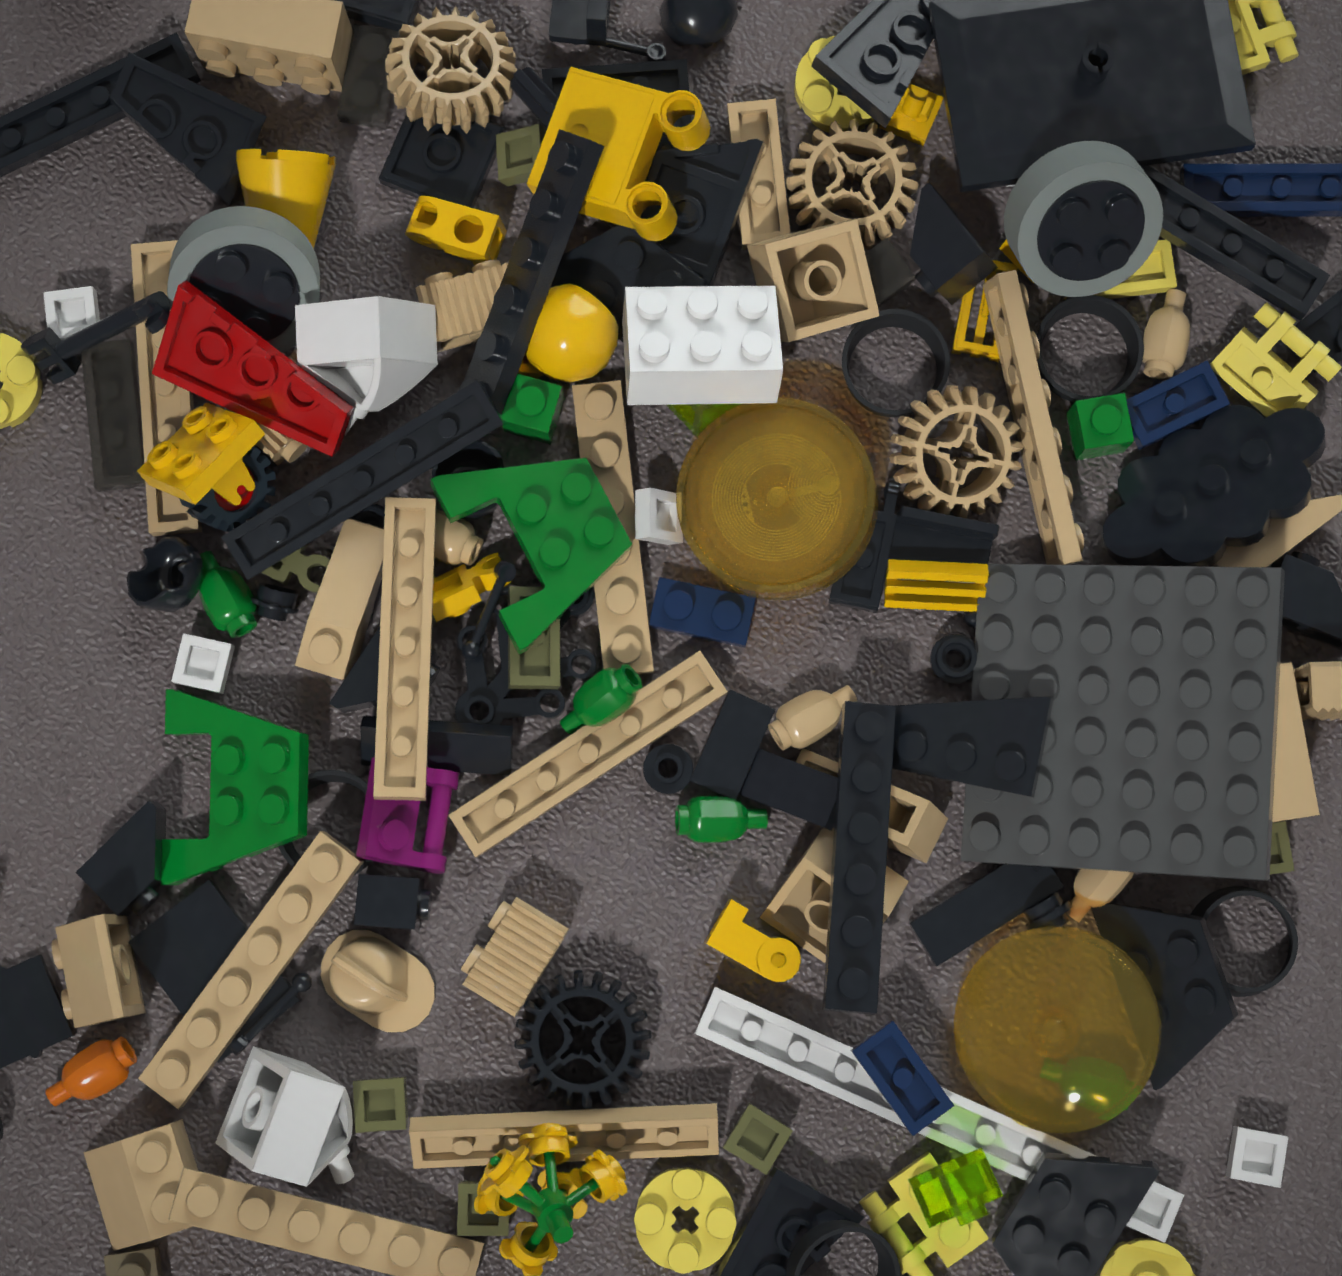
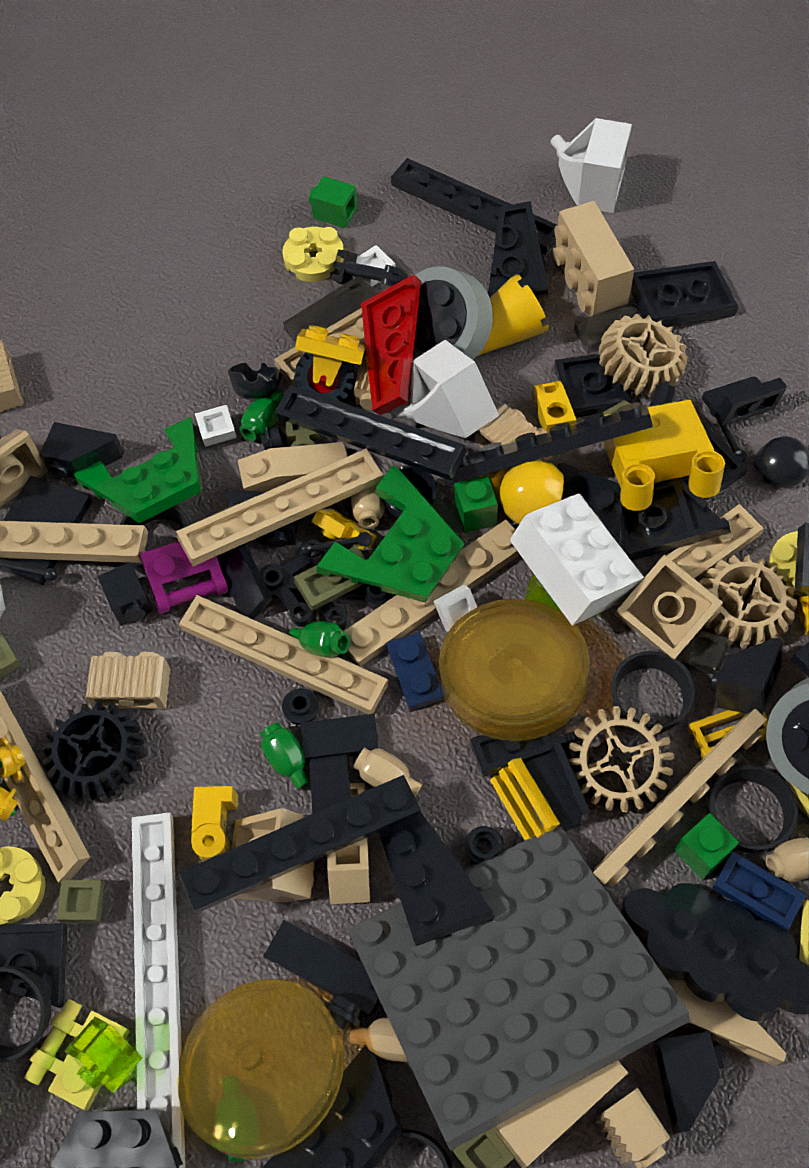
camera: 65 degrees right, 20 degrees down
(377, 981) = (74, 618): tan piece -> none
(902, 1078) = (166, 970): dark blue plate -> none

